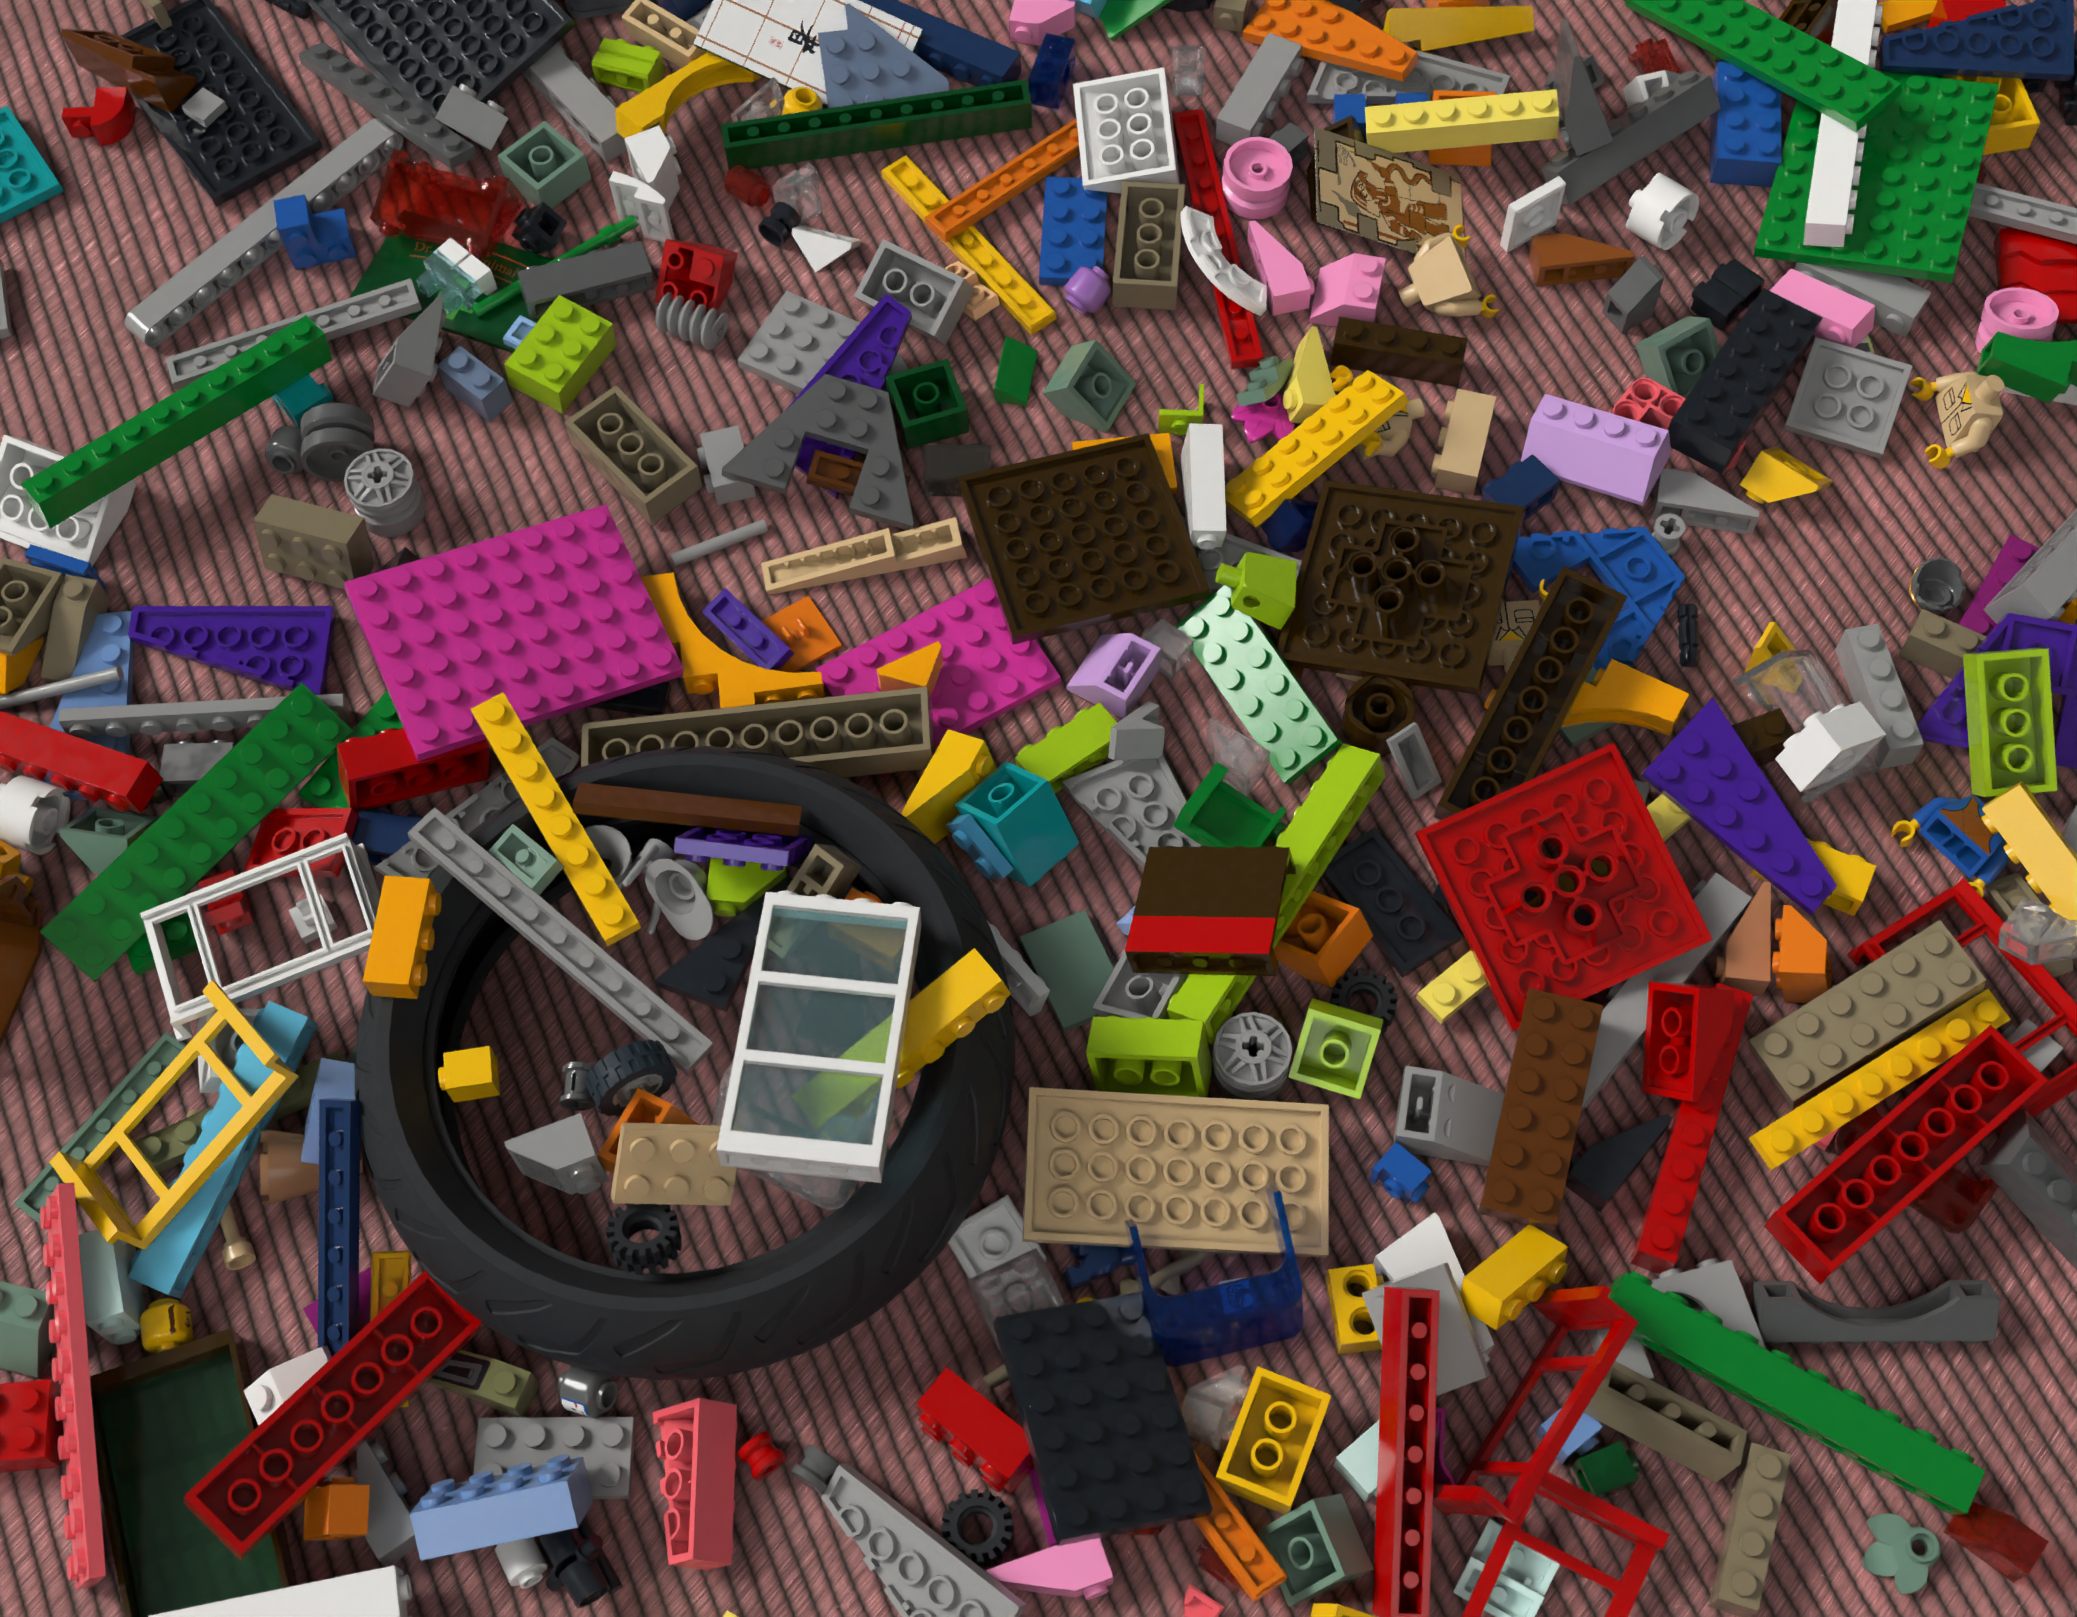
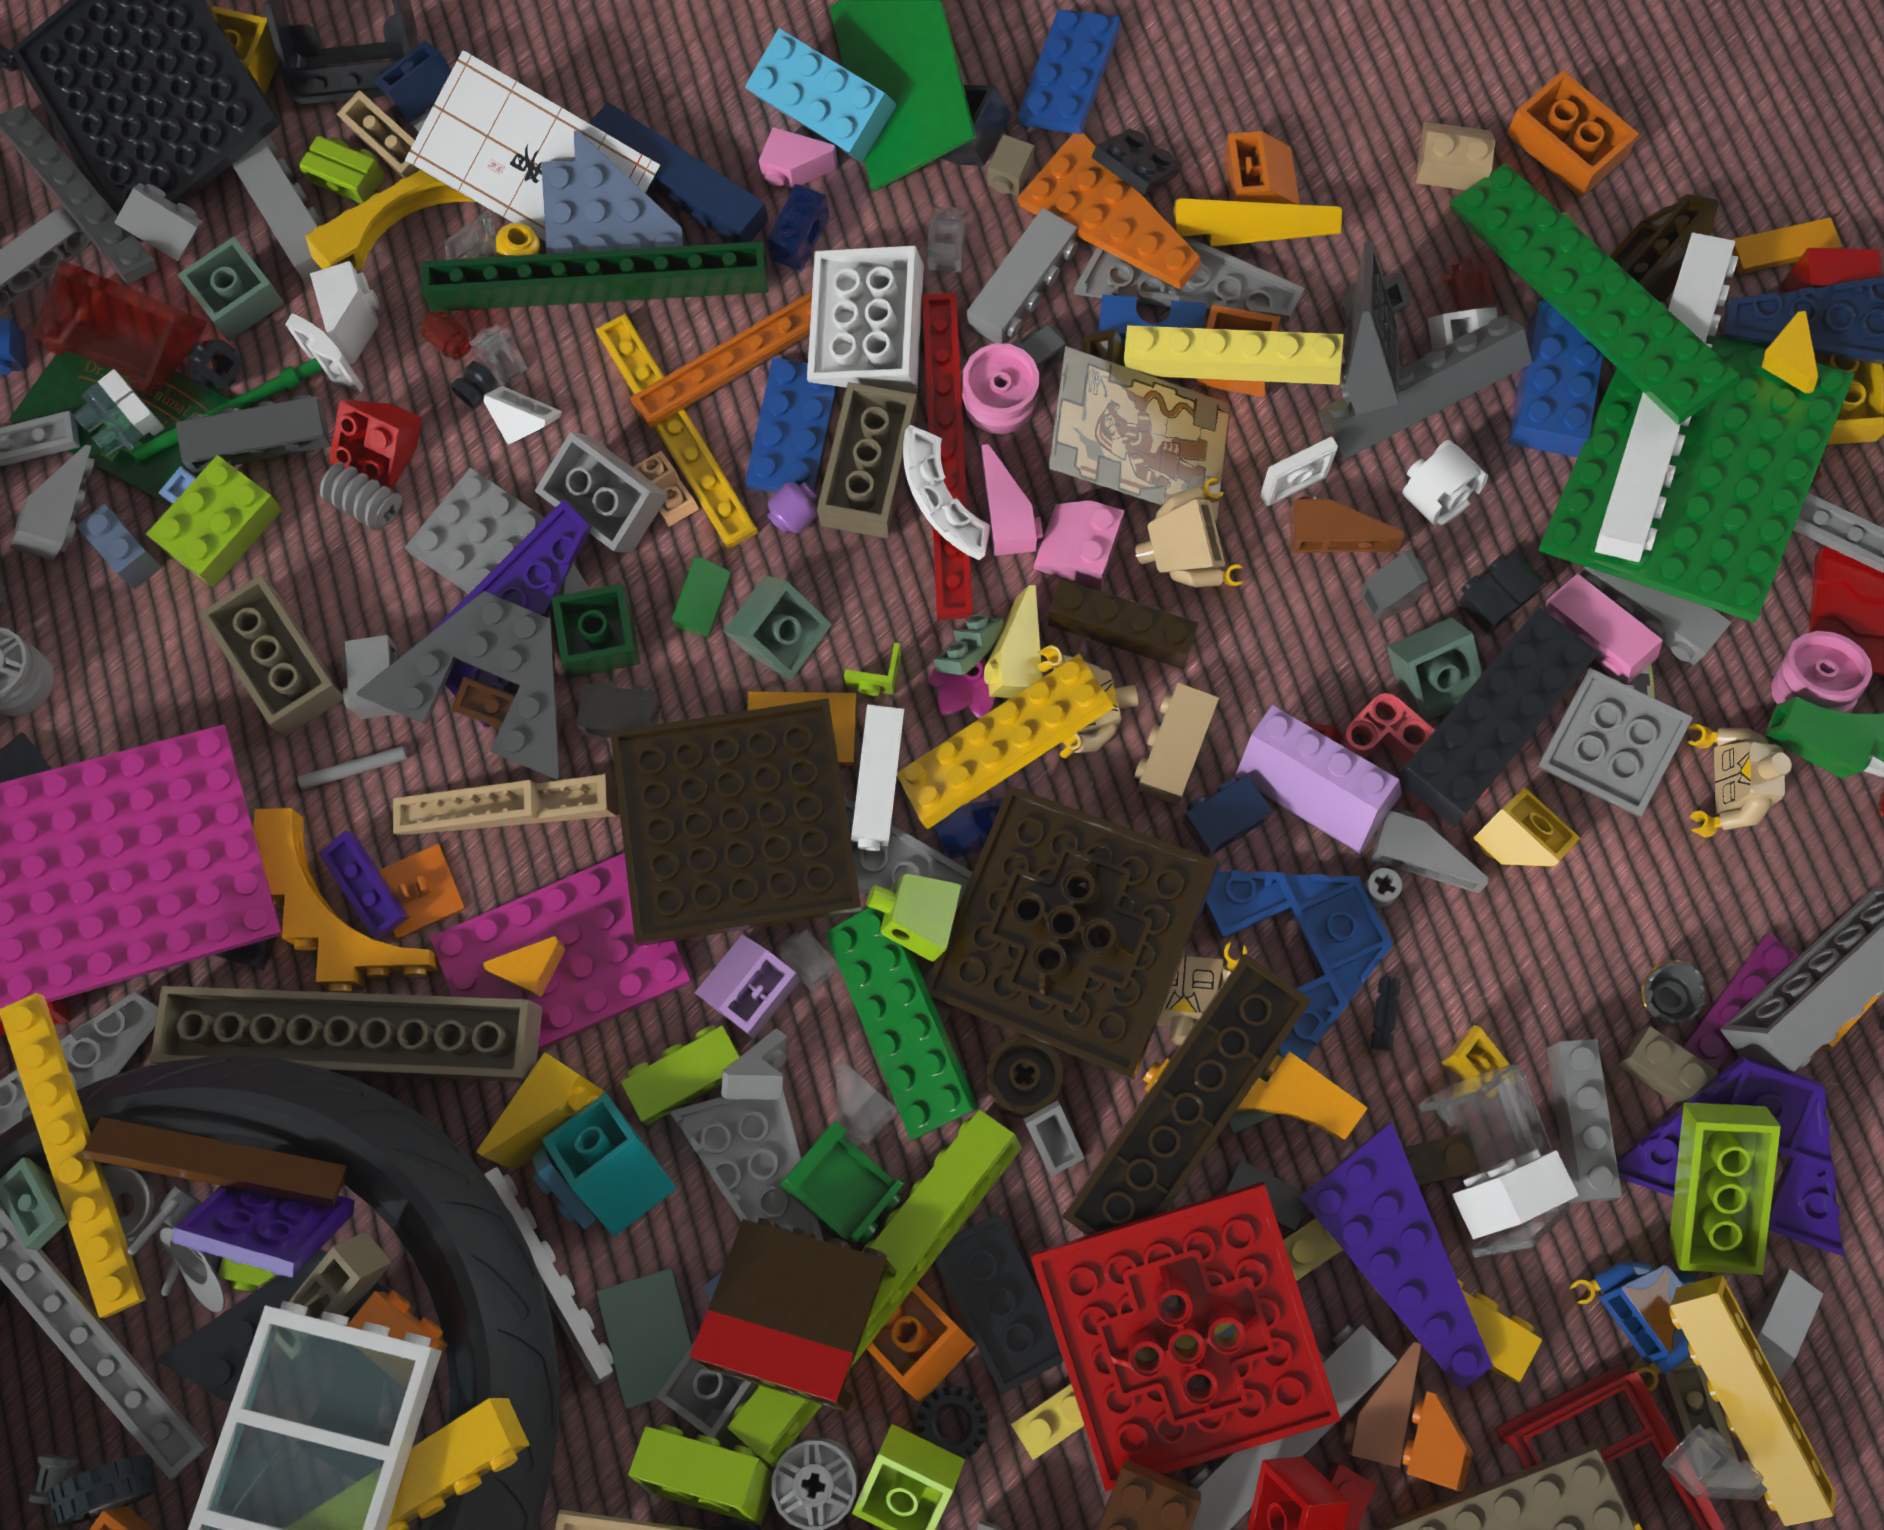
camera: 10 degrees right, 10 degrees up
(1943, 72) = (1793, 356): none -> yellow slope

